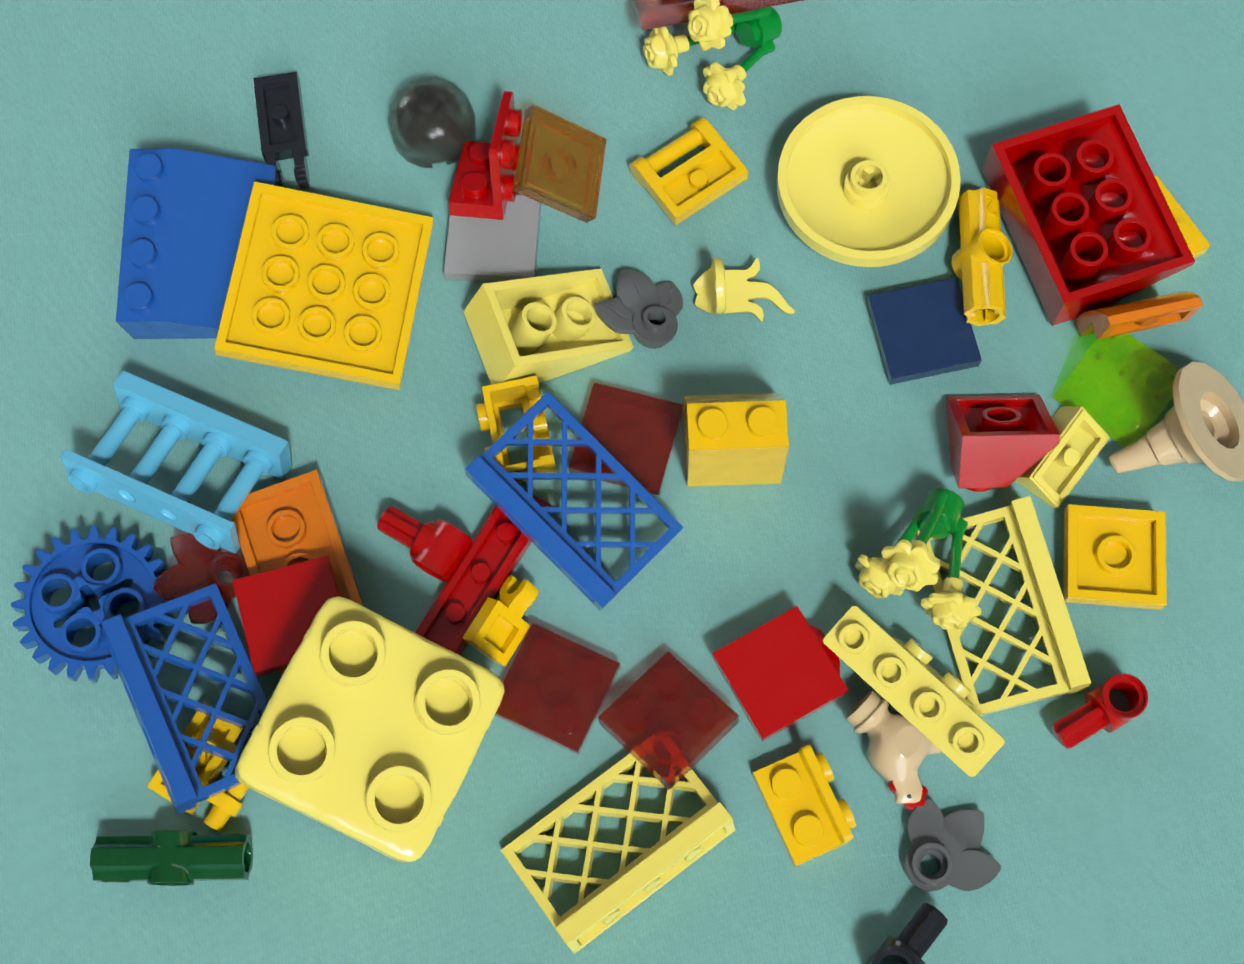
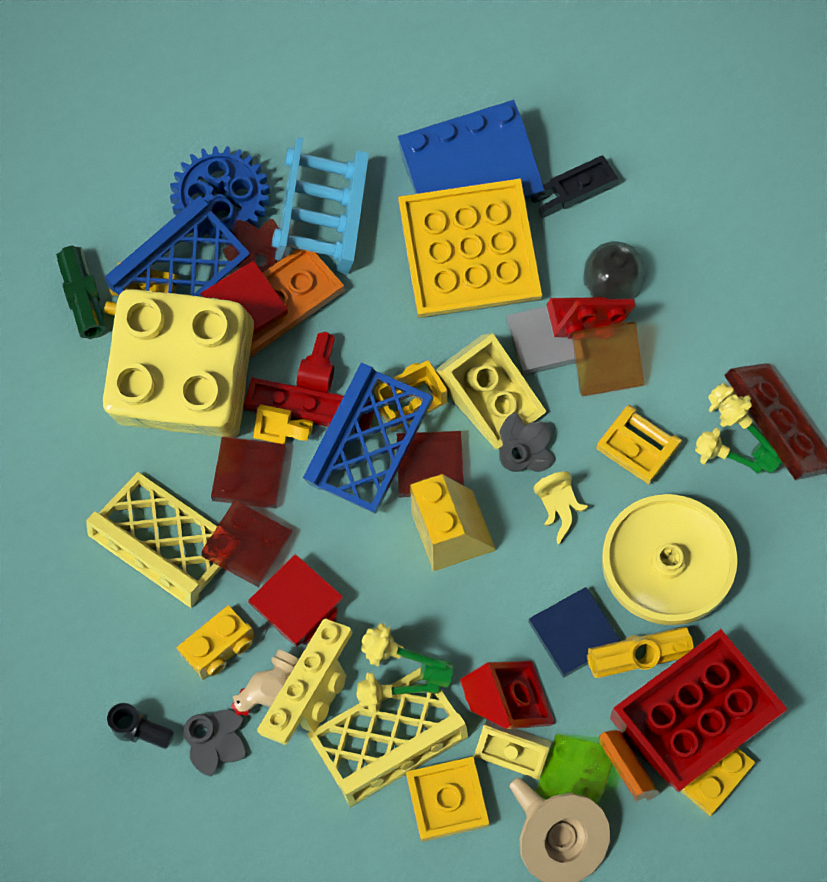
camera: 70 degrees right, 5 degrees down
(1099, 713) = (331, 812): red axle -> none

